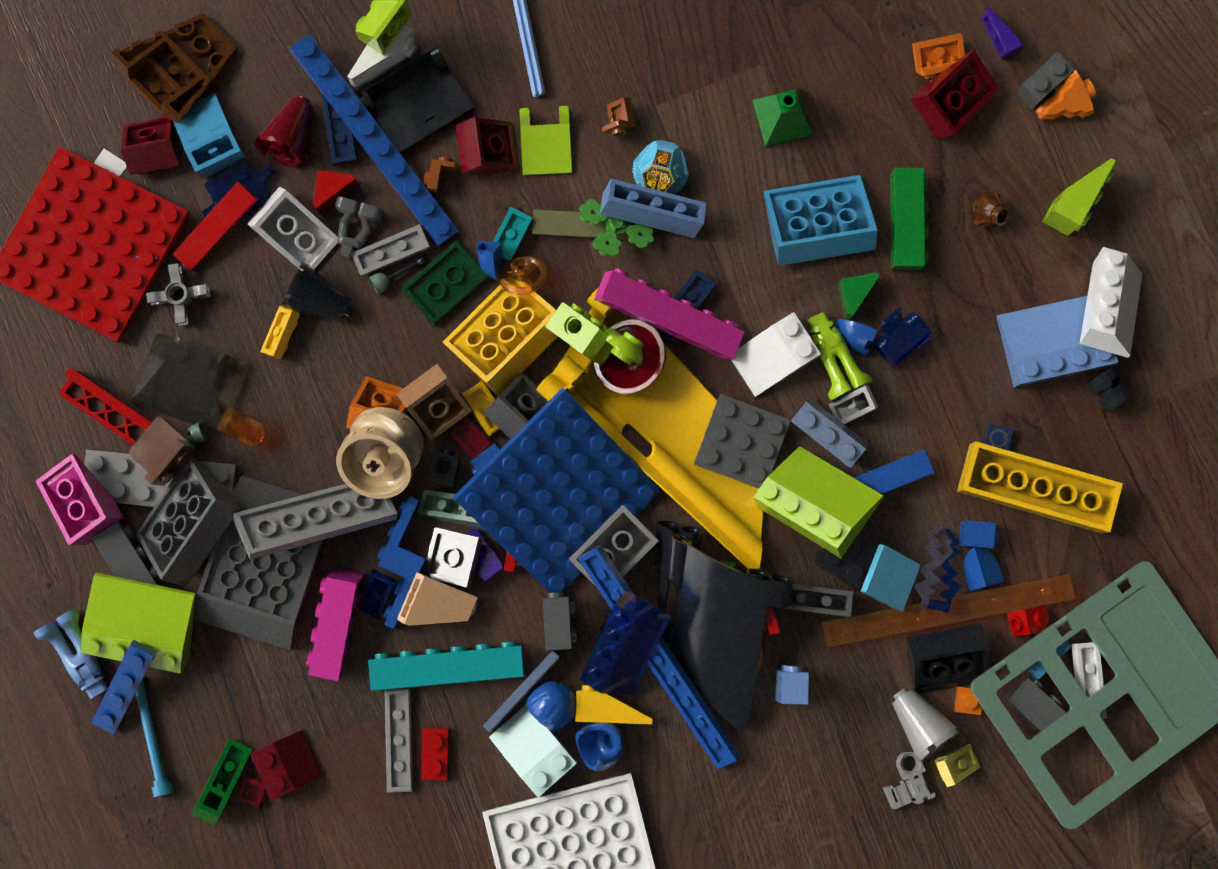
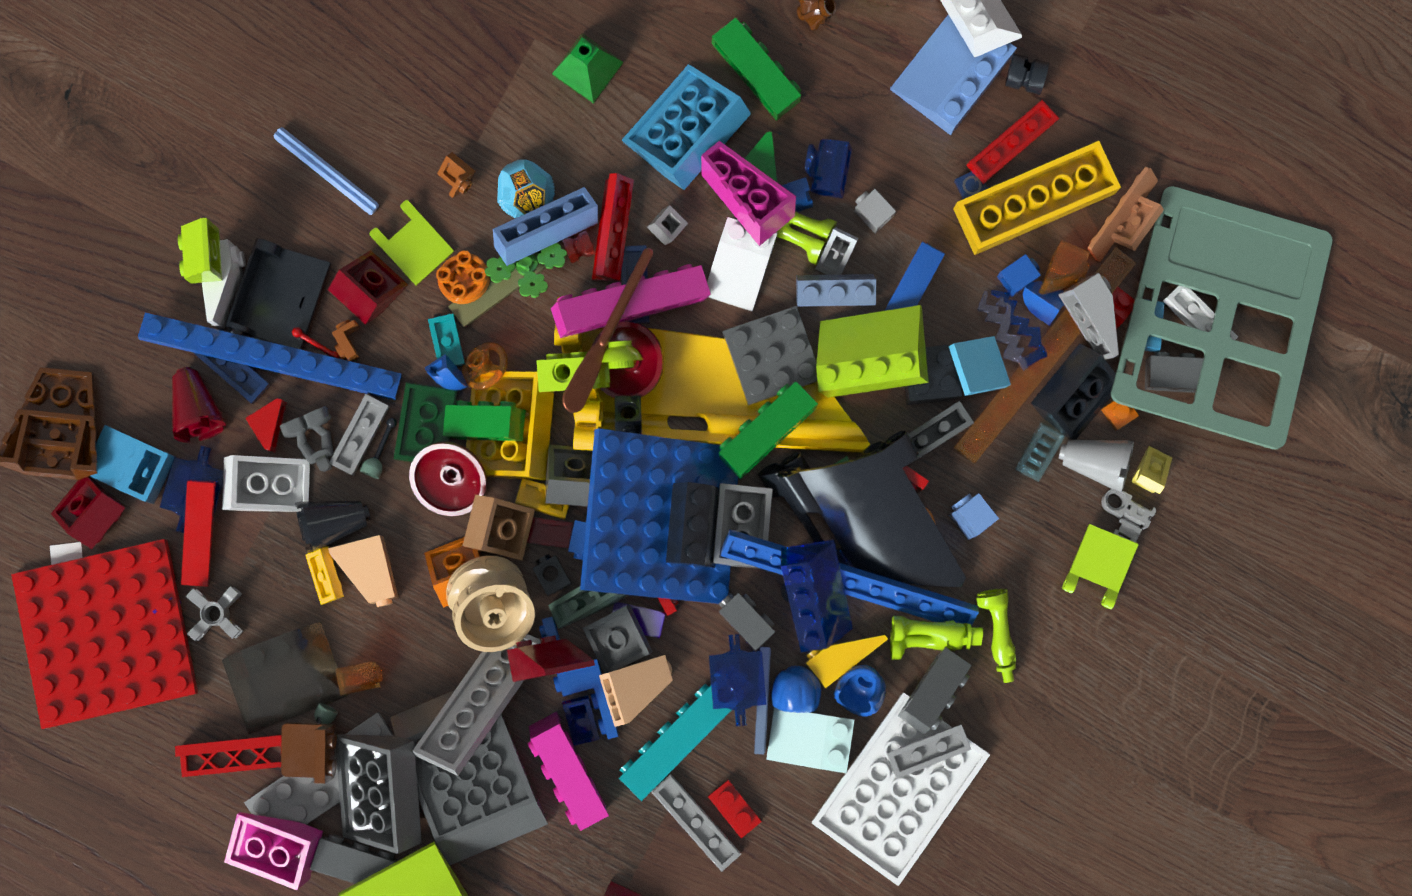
camera: 40 degrees left, 0 degrees up
(315, 354) = (368, 569): none -> light nougat slope
(386, 527) = (545, 658): none -> dark red slope
(407, 138) = (297, 332): none -> red hinge
(416, 335) = (441, 489): none -> dark red dish
(488, 315) = (484, 421): none -> green brick
(514, 661) = (737, 680): none -> clear blue plate
(561, 197) = (463, 278): none -> orange tile
(577, 518) = (692, 524): none -> black slope
(590, 341) = (588, 370): none -> copper piece
(600, 391) = (628, 408): none -> black brick
(612, 833) = (928, 751): none -> light grey plate
(655, 793) = (935, 691): none -> dark grey brick
(665, 244) = (578, 247): none -> clear red wheel
(690, 751) = (931, 635): none -> lime piece
(691, 494) = (769, 429): none -> green brick
(702, 251) = (612, 228): none -> red fence
(733, 801) = (1002, 645): none -> lime piece
(750, 283) = (673, 222): none -> light grey plate
(824, 306) = (747, 192): none -> dark pink wedge
(862, 799) = (1102, 560): none -> lime flag
(900, 664) = (1053, 447): none -> clear light blue slope
(908, 396) = (874, 210): none -> light grey brick
(1010, 608) = (1093, 312): none -> light grey slope
(1017, 558) = (1065, 268): none -> clear orange slope
(1056, 431) = (1012, 141): none -> red tile
(1098, 561) = (1130, 218): none -> nougat bracket

